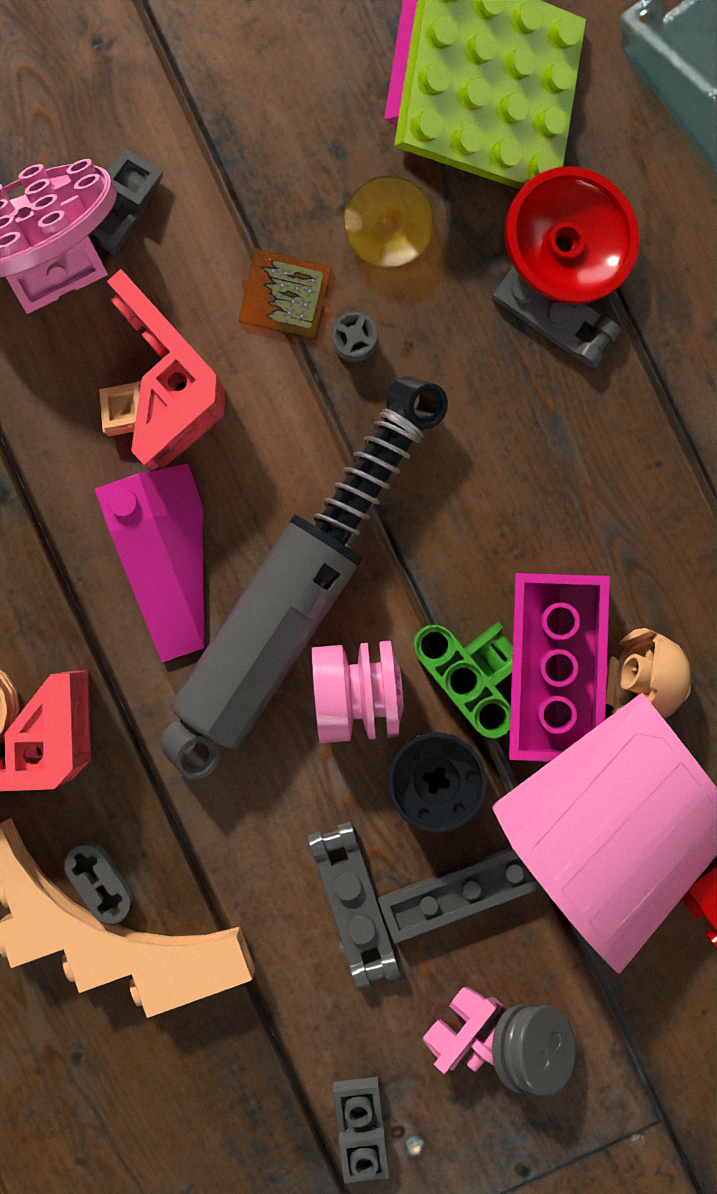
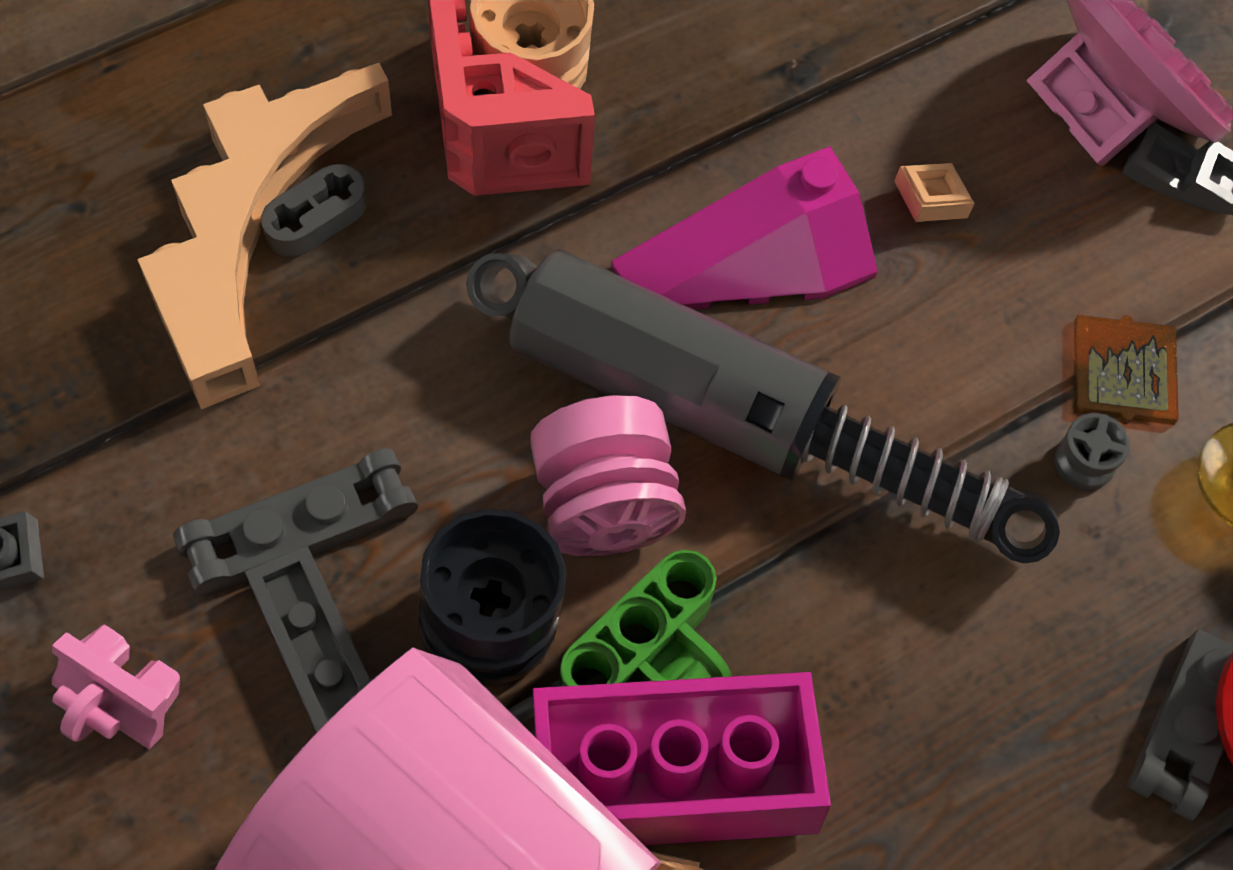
camera: 75 degrees right, 25 degrees down
(167, 418) = (931, 227): coral bracket -> none
(533, 1049) = (86, 780): dark grey head -> none

